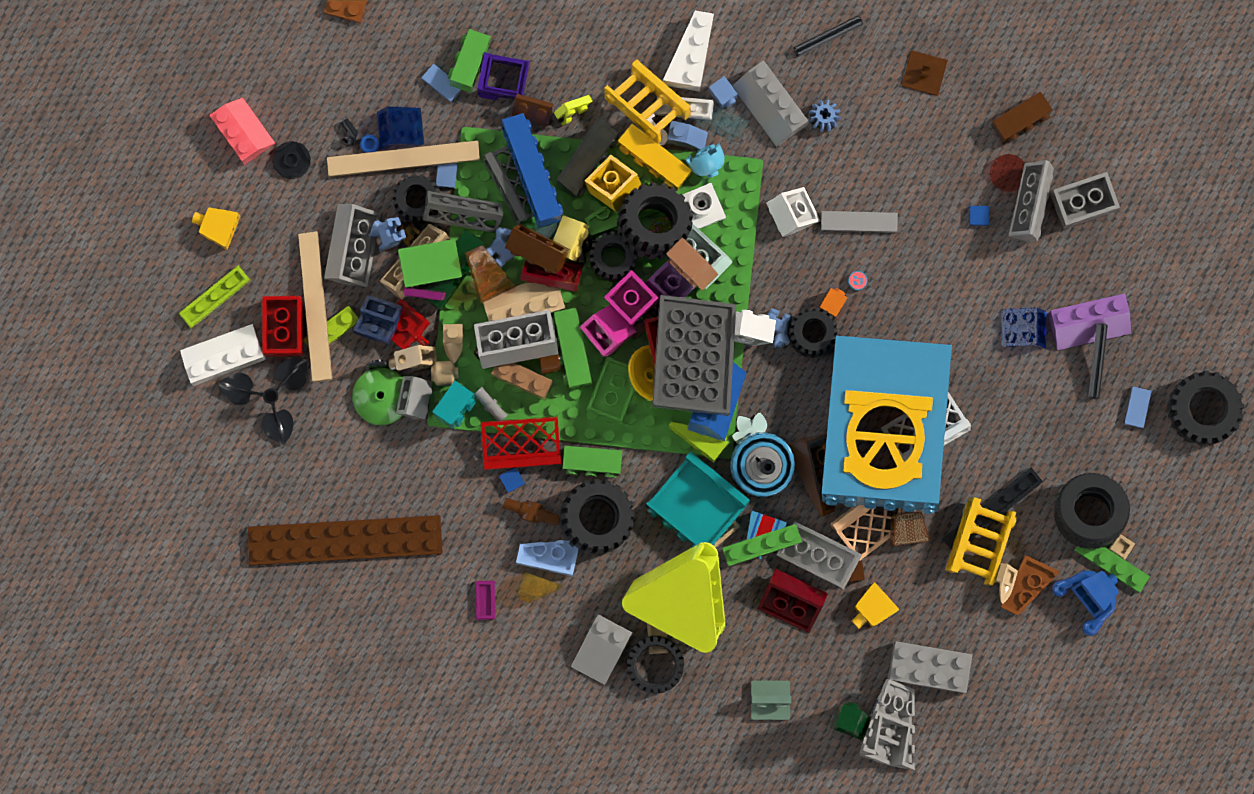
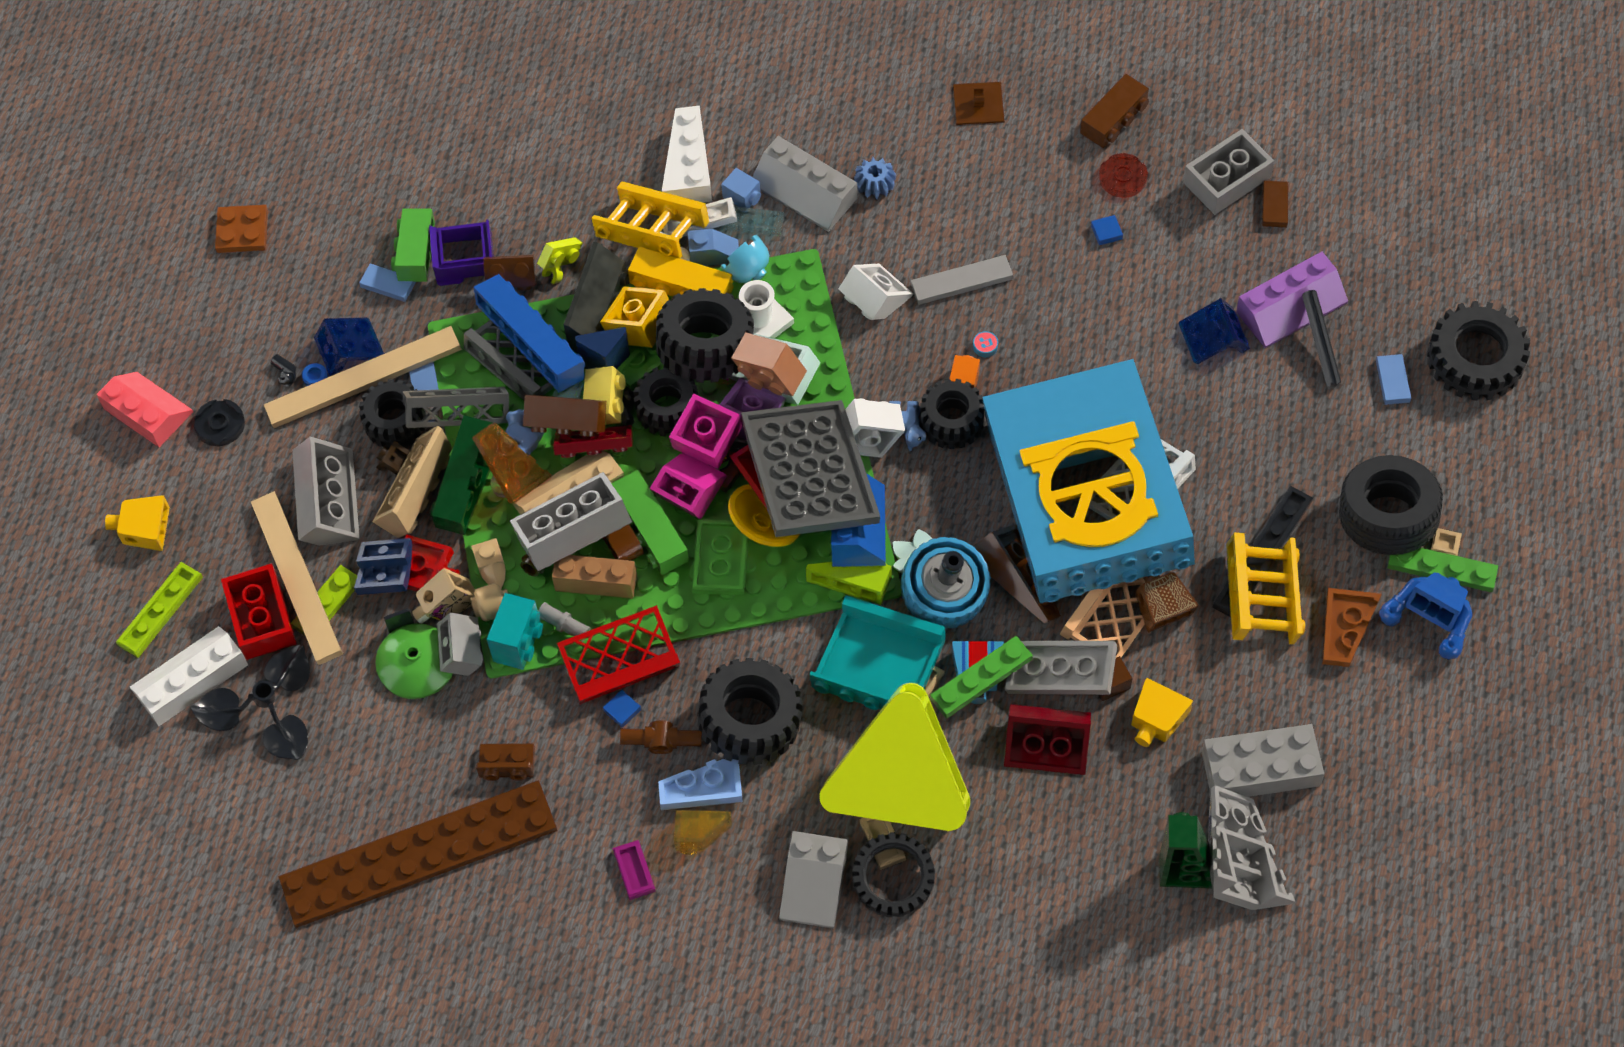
camera: 10 degrees left, 20 degrees down
(387, 233) = (366, 461): medium blue animal -> none
(422, 492) = (506, 761): none -> reddish brown bracket
(423, 293) = (434, 507): magenta tile -> none
(429, 263) = (429, 465): bright green tile -> none
(580, 204) = (603, 348): none -> dark blue slope
(592, 461) = (710, 650): bright green brick -> none
(770, 700) = (1066, 874): sand green bracket -> none
(828, 35) = (847, 97): black axle -> none
(1006, 578) = (1316, 618): tan plate -> none
(1031, 201) = (1164, 189): light grey slope -> none
(1110, 235) = (1275, 204): none -> reddish brown tile

